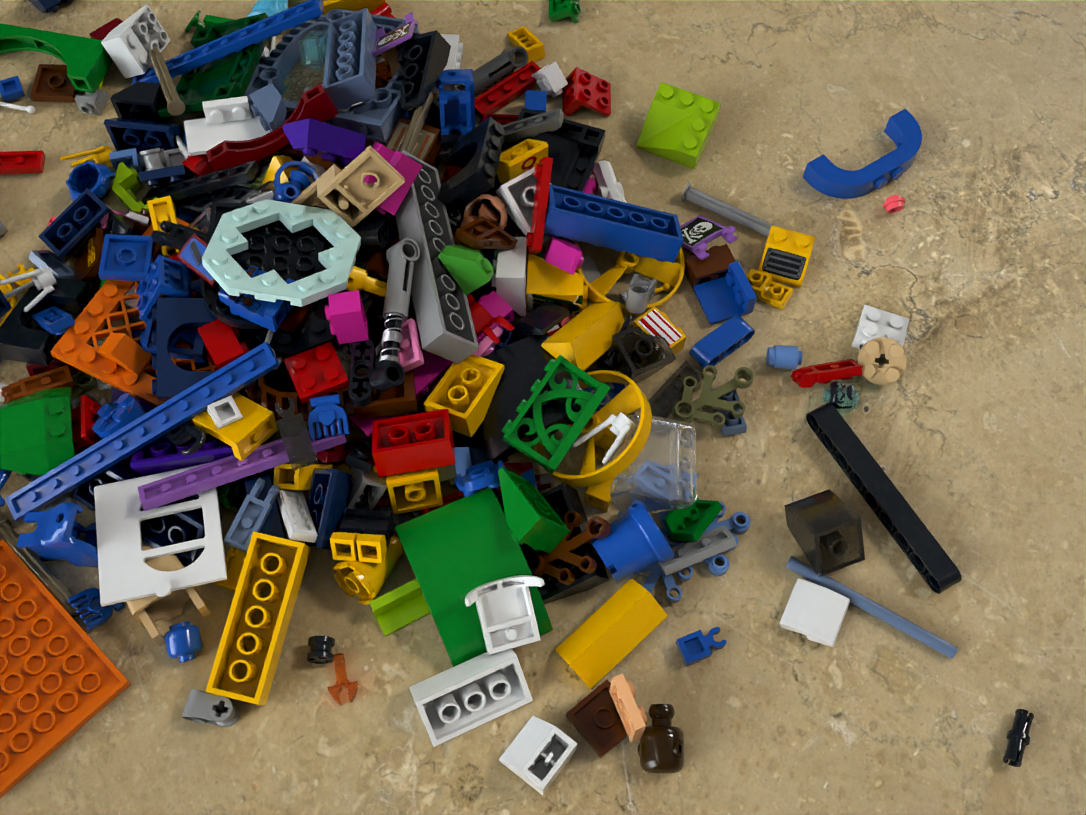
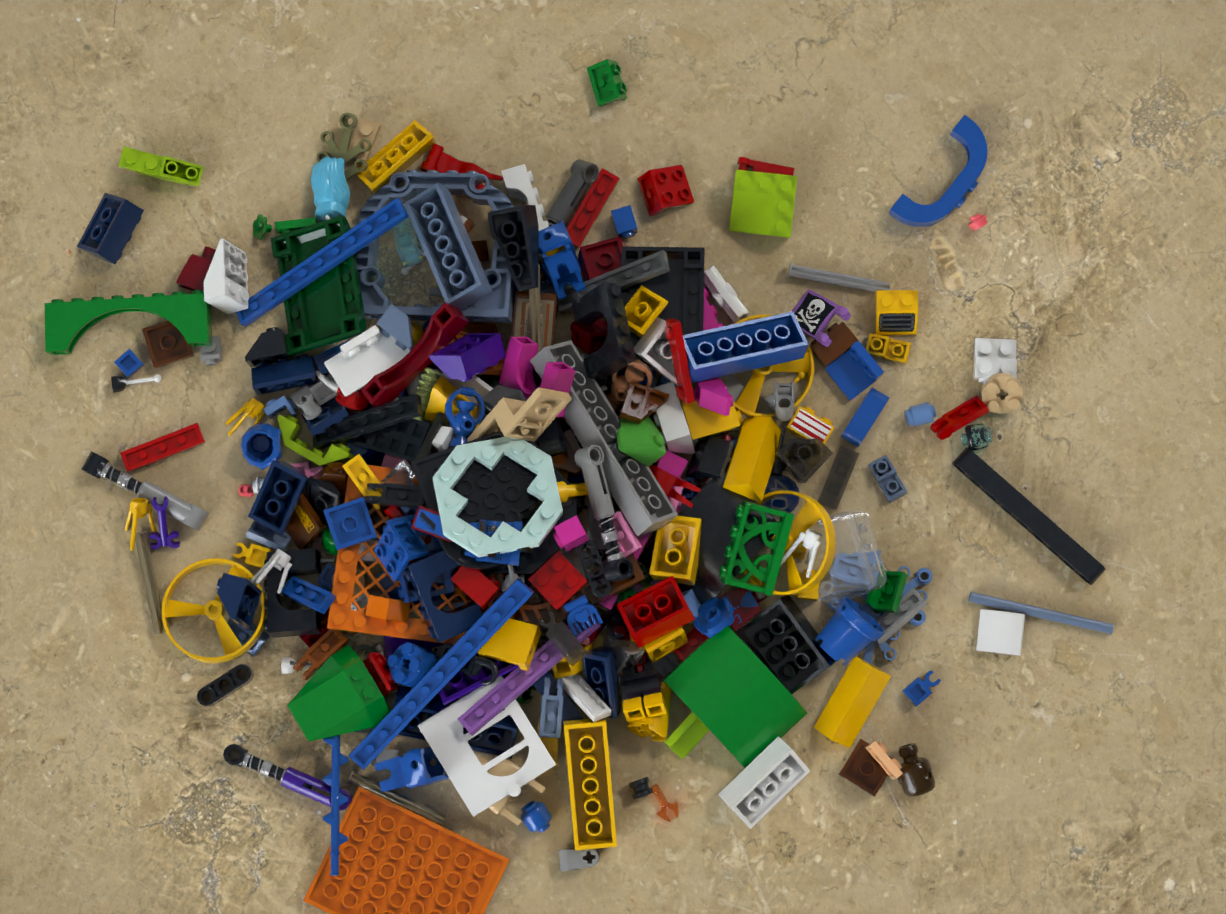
camera: 15 degrees left, 20 degrees up
(92, 596) = (457, 810): blue piece -> none
(175, 105) = (282, 320): dark tan axle -> none
(224, 412) = (502, 640): white slope -> none
(387, 41) = (477, 209): medium lavender flag -> none
(506, 612) = (772, 718): white piece -> none
(529, 42) = (596, 153): yellow slope -> none
(530, 514) = (763, 635): green slope -> none
(539, 753) = (828, 809): white slope -> none
(550, 79) = (627, 187): white window -> none
(566, 546) = (797, 653): reddish brown plant -> none
(711, 398) = (870, 479): olive plant -> none
(826, 531) = (992, 565): clear smoke slope -> none
(1018, 738) = (1170, 680): black pin -> none

